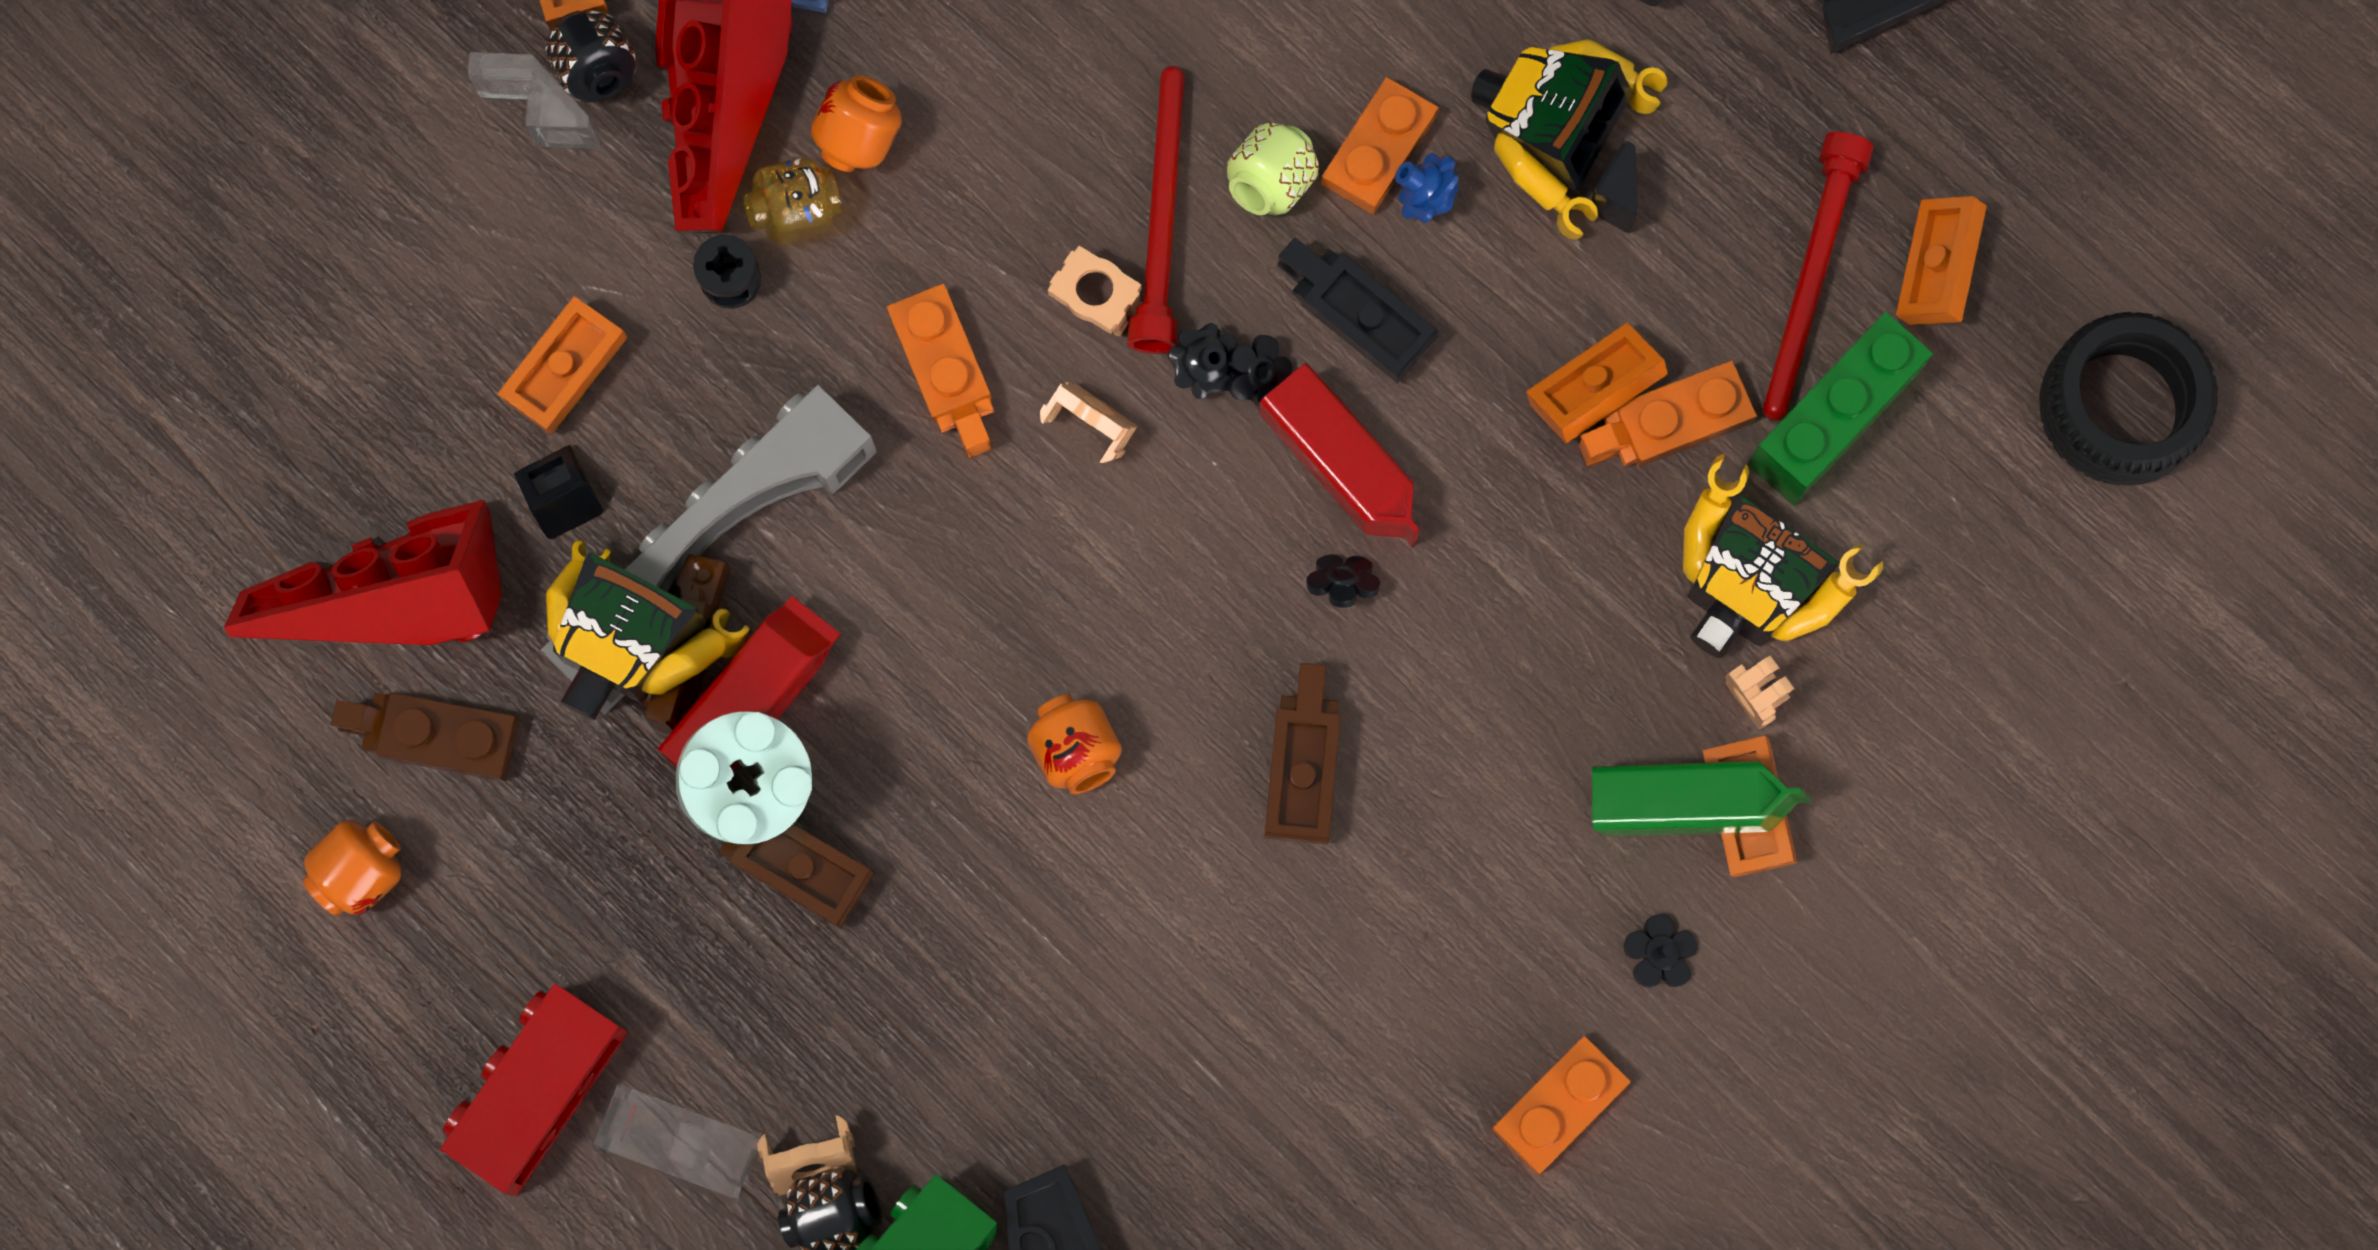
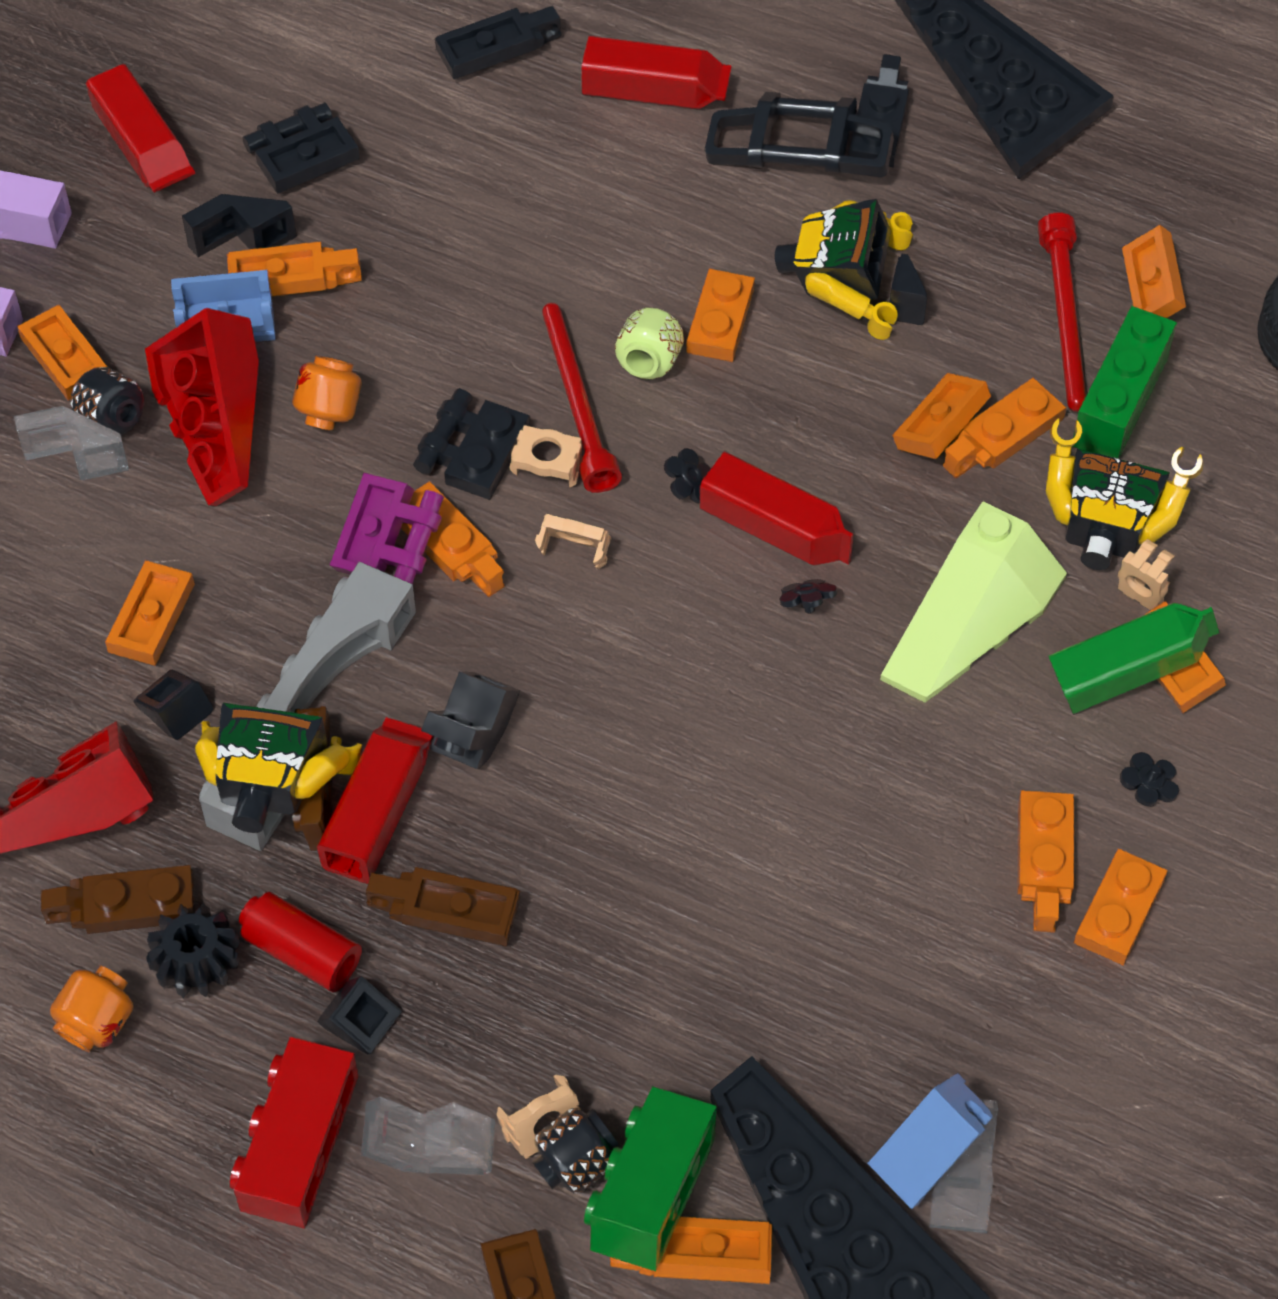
camera: 20 degrees left, 20 degrees down
(463, 841) = (190, 932): none -> black gear
(607, 853) = (299, 940): none -> red brick
(649, 962) = (359, 1015): none -> black slope
(733, 284) = (251, 527): black wheel -> none
(780, 786) = (400, 806): light aqua brick -> none
(792, 200) = (295, 455): clear yellow head -> none
(852, 337) = (375, 524): none -> magenta plate
(888, 631) = (472, 719): none -> black brick
(1027, 255) = (484, 451): none -> black plate
(1074, 744) = (646, 756): orange head -> none
(1203, 360) = (645, 478): black plant -> none
(1303, 762) = (827, 723): reddish brown hinge -> none
(1358, 308) = (746, 415): black hinge -> none
(1427, 187) = (767, 326): blue plant -> none
(1499, 1011) = (1045, 854): none -> orange hinge
(1554, 648) = (983, 593): none -> yellowish green wedge

